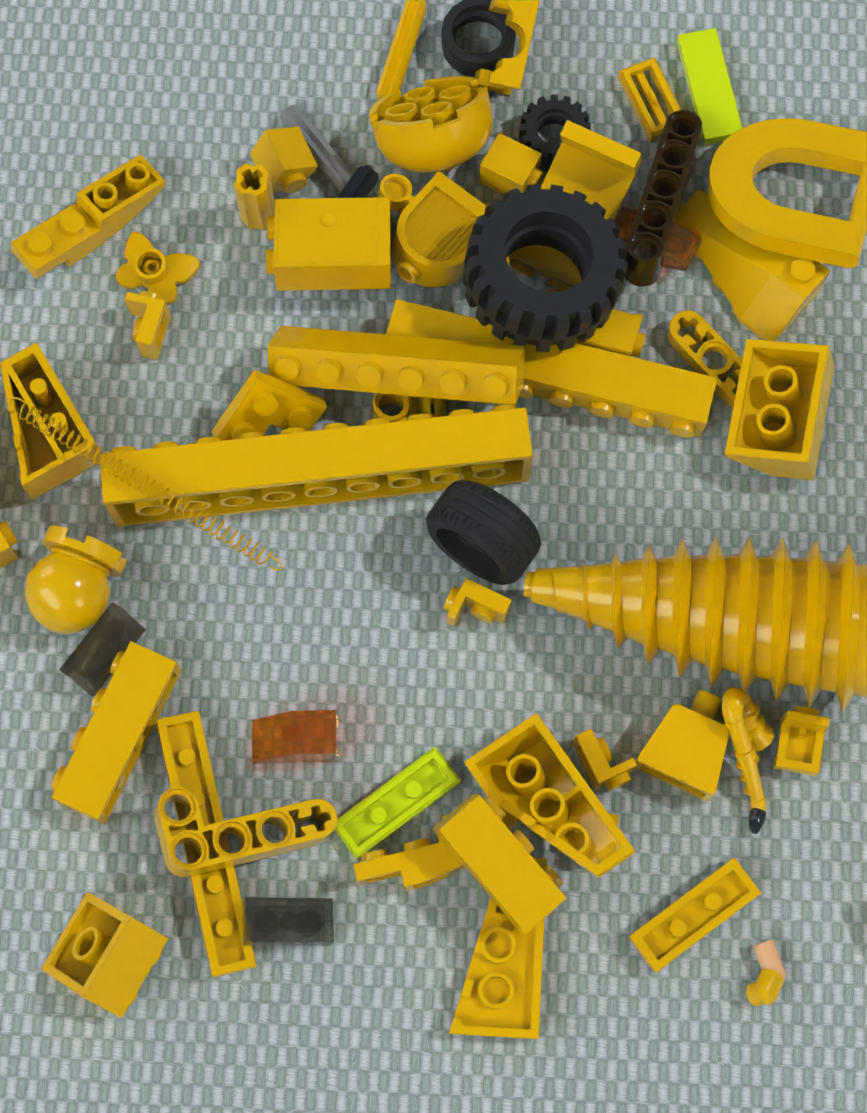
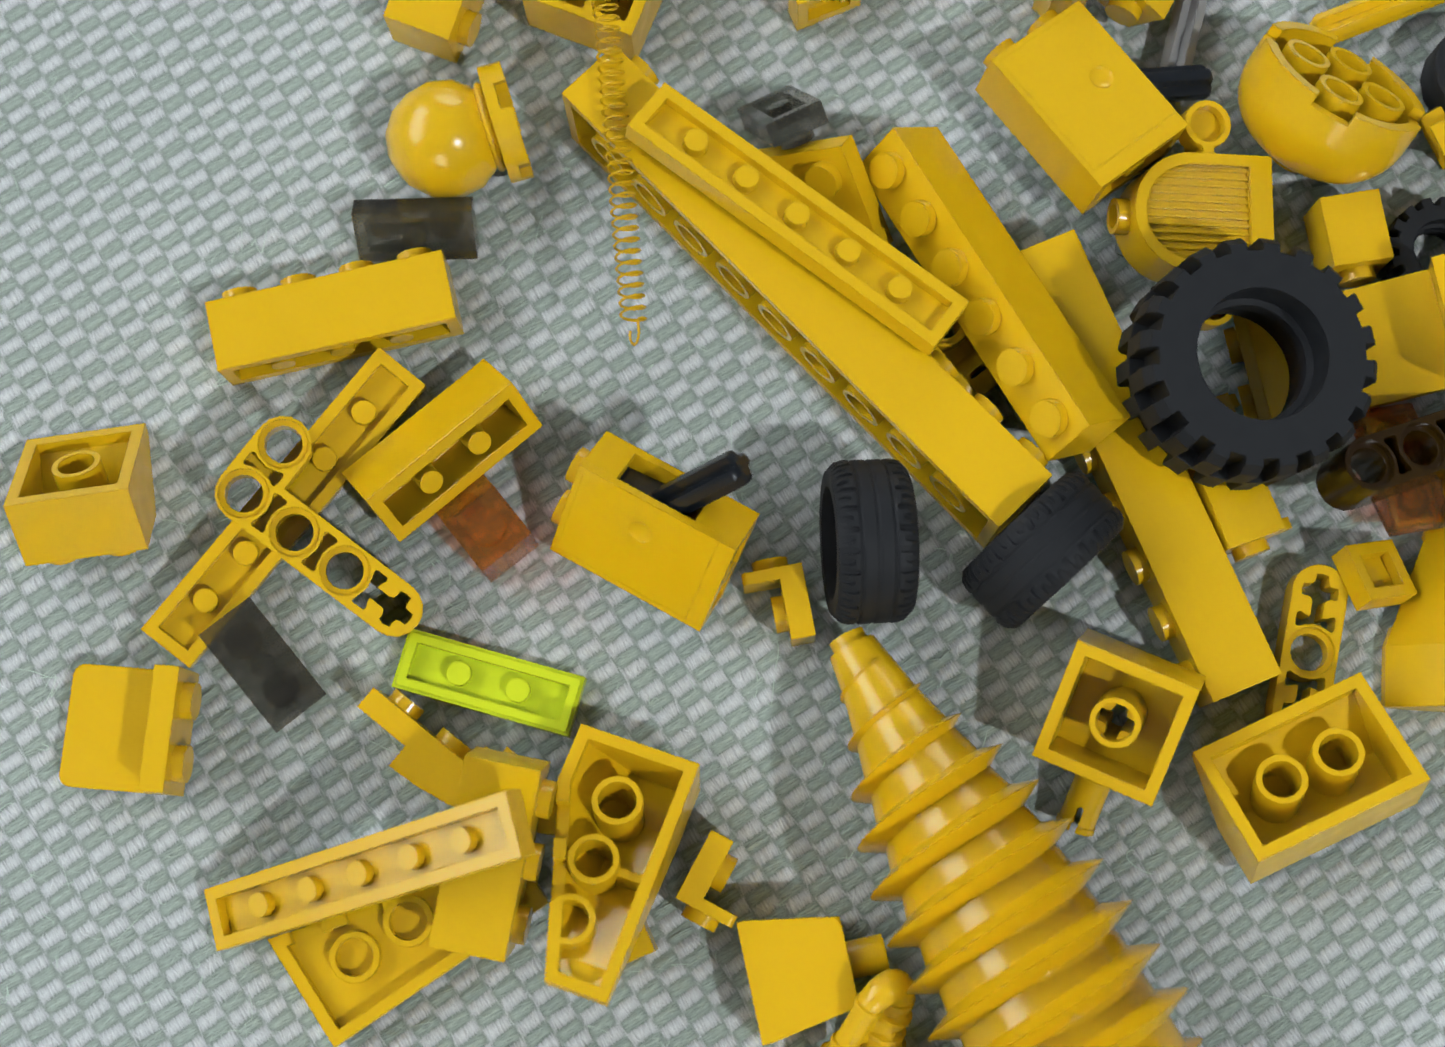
camera: 55 degrees right, 5 degrees up
(207, 400) = (784, 117): none -> clear smoke plate
(245, 726) = (442, 449): none -> yellow brick
(265, 1027) = (130, 729): none -> yellow bracket
(281, 430) = (796, 219): none -> yellow plate
(385, 639) = (655, 527): none -> yellow piece
(459, 937) = (371, 870): none -> yellow plate
(560, 446) = (1042, 549): none -> black tyre
(699, 294) = (1374, 574): none -> yellow tile
(702, 486) = (1110, 756): none -> yellow brick

